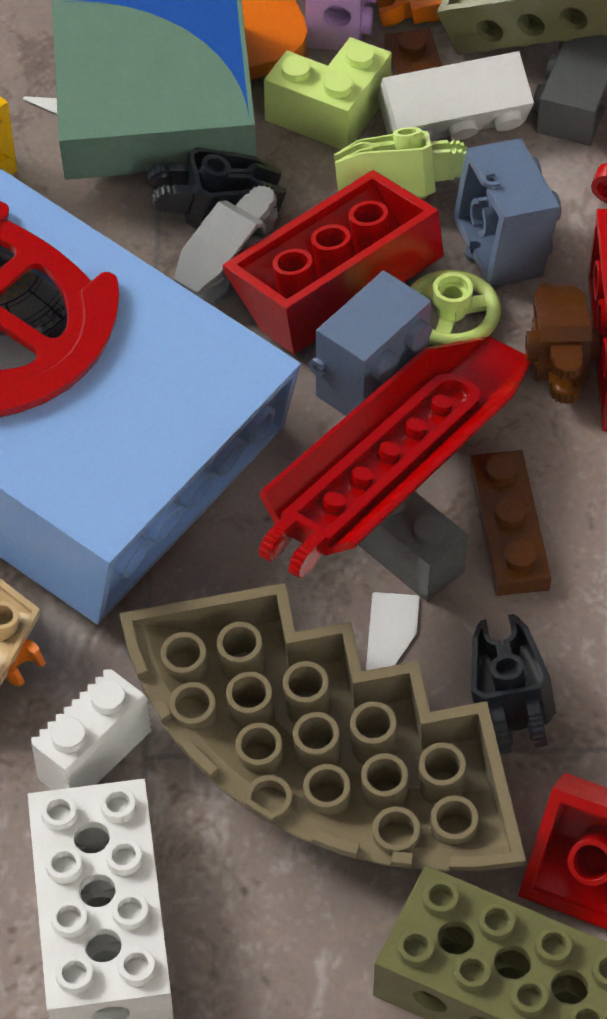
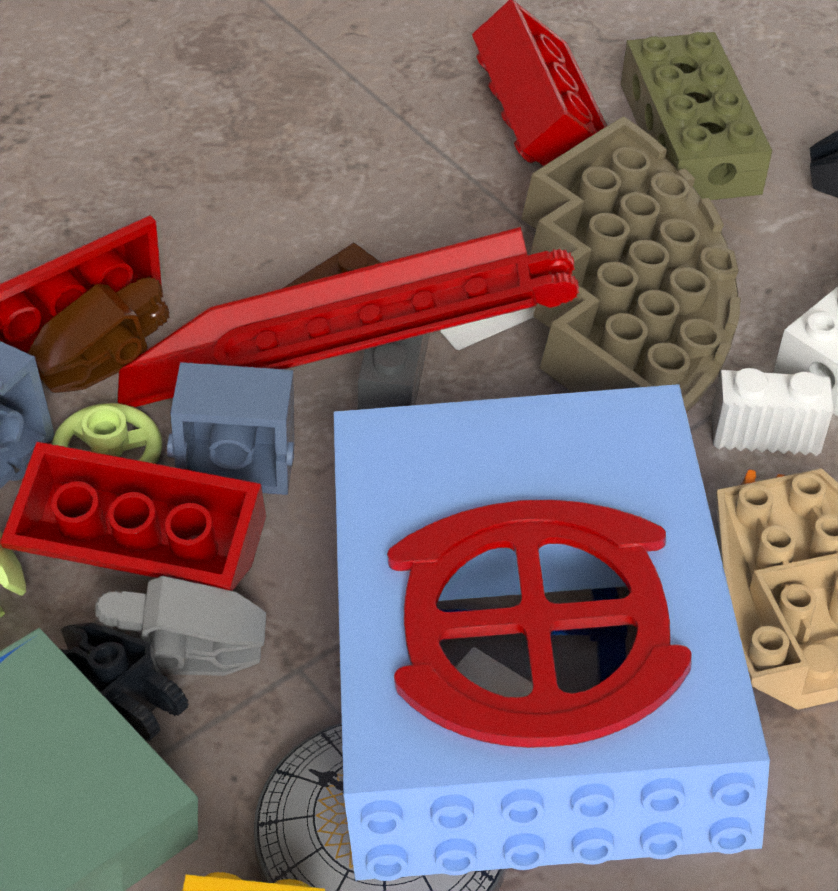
camera: 130 degrees left, 5 degrees down
(512, 683) = (477, 203): black hinge -> none

